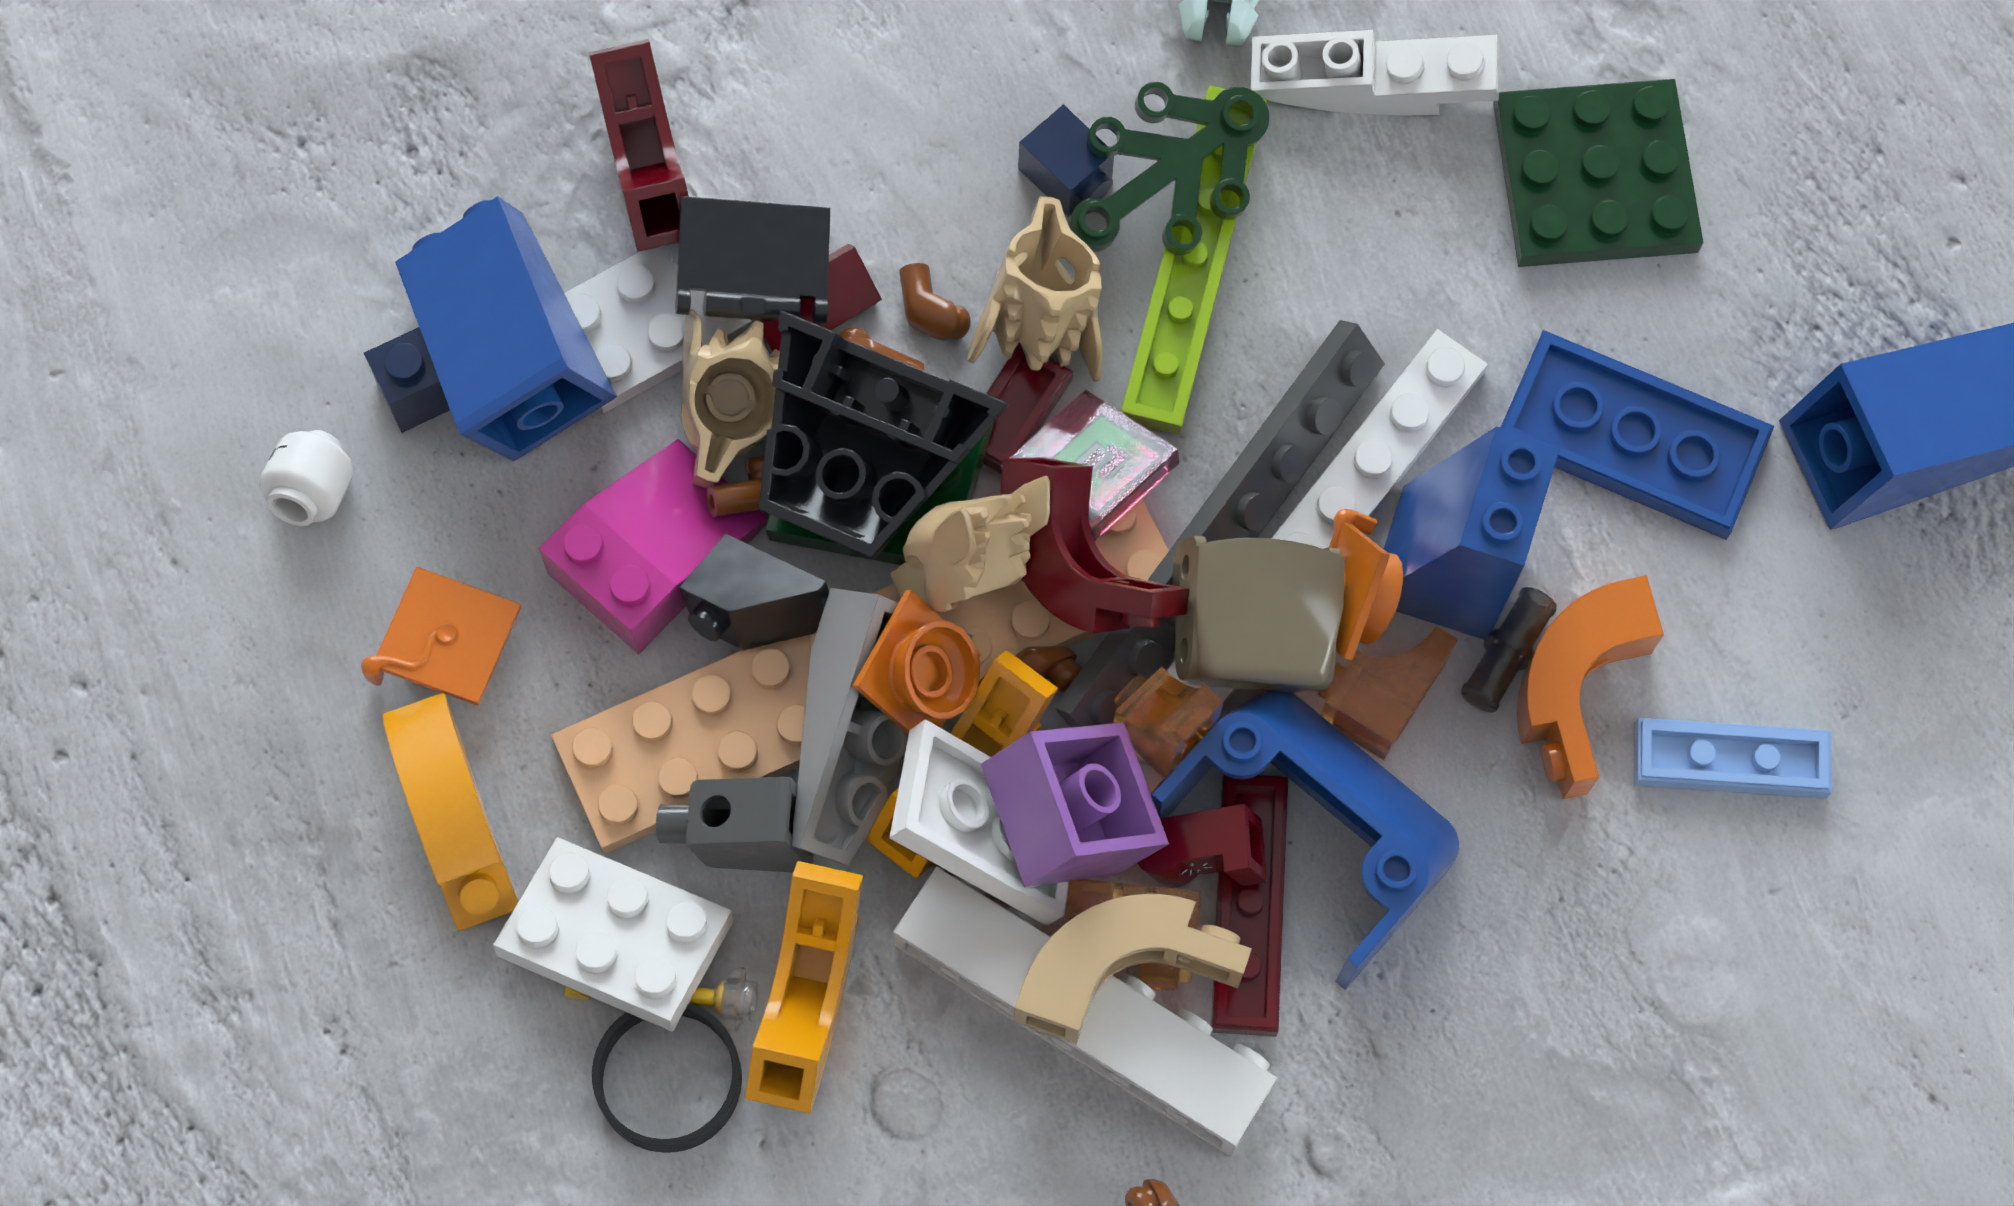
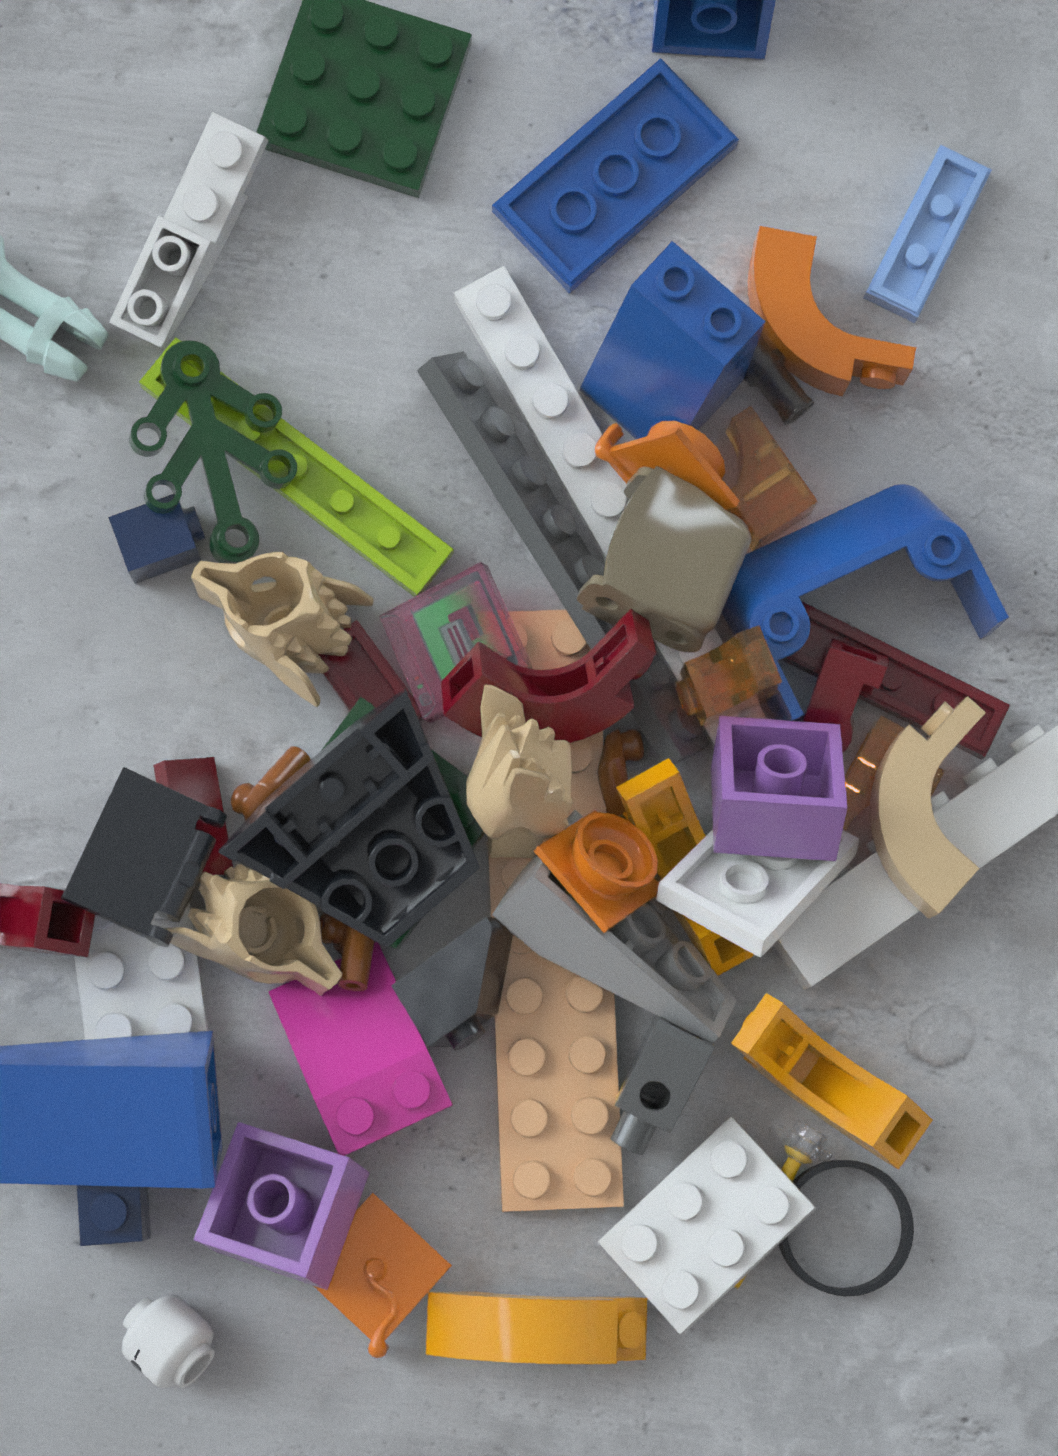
camera: 75 degrees left, 10 degrees up
(471, 518) = (282, 1205): none -> medium lavender brick
(928, 311) = (243, 721): dark orange arm -> none

